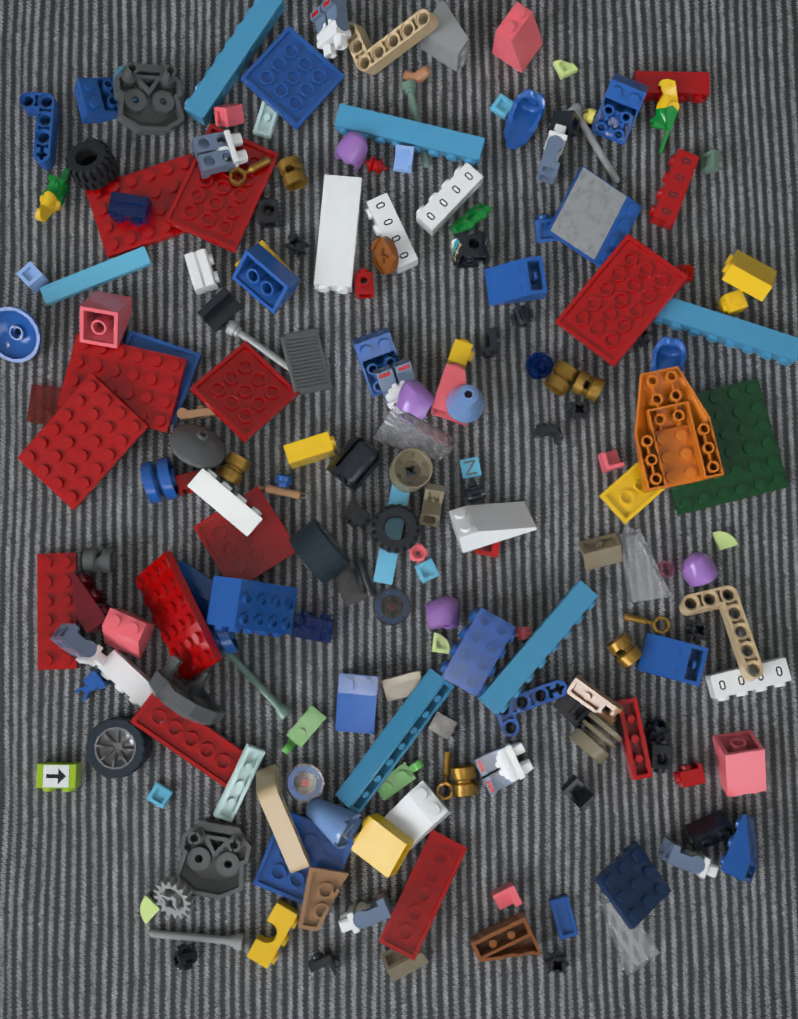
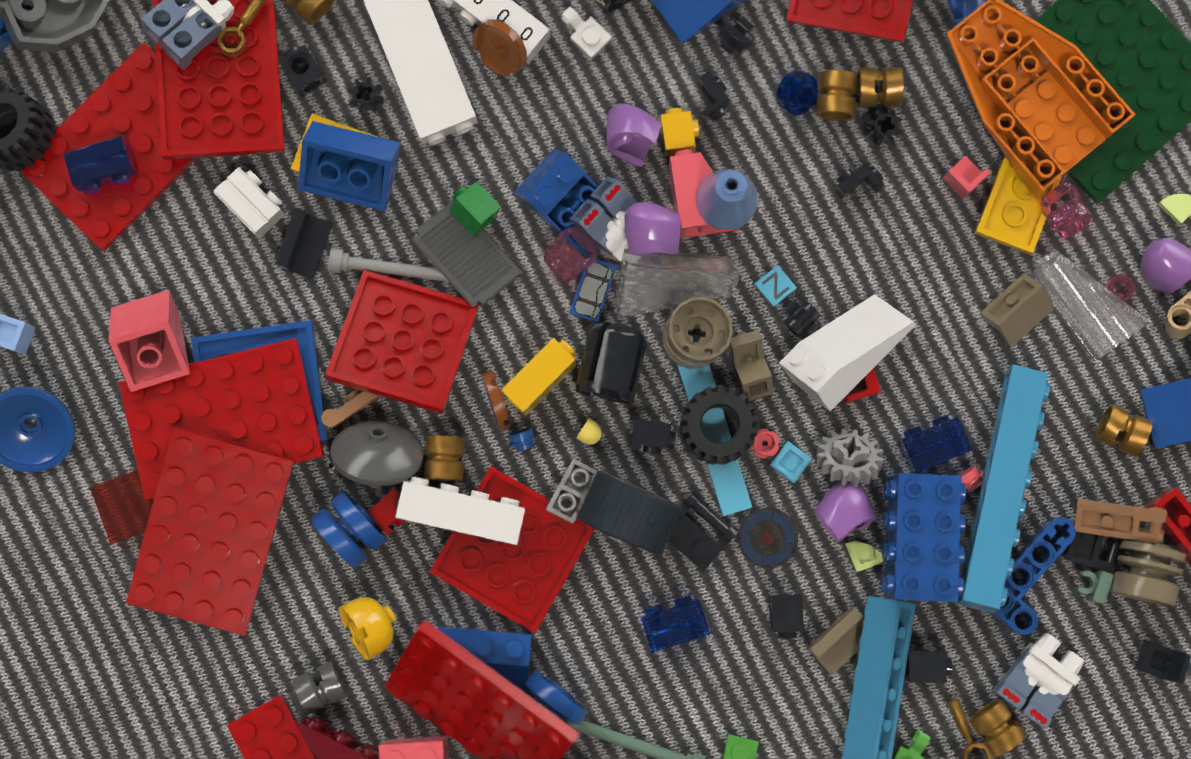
camera: 25 degrees left, 0 degrees up
(95, 276) = (99, 286): medium azure tile -> none
(143, 539) = (369, 625): none -> yellow cylinder
(251, 606) = (577, 640): blue brick -> none
(279, 450) = (496, 400): none -> dark orange tile
(282, 491) = (529, 455): light nougat piece -> none
(294, 523) = (571, 491): none -> light grey slope
(323, 496) = (590, 432): none -> light yellow hinge
(324, 338) = (474, 208): none -> green brick
(356, 703) = (790, 698): slope -> none
(359, 391) = (565, 259): none -> clear pink piece
(366, 290) = (492, 113): red brick -> none
(367, 417) = (593, 291): none -> tile
(378, 655) = (786, 615): none -> black brick
(433, 340) = (631, 133): none -> medium lavender piece
(439, 274) = (588, 35): none -> white plate
(460, 585) = (835, 452): none -> light grey gear
(513, 603) = (934, 444): none -> clear blue brick
(563, 731) = (1098, 588): none -> sand green tile
(643, 620) = (1127, 375): pearl gold piece -> none
(657, 514) = (1071, 216): none -> clear pink piece

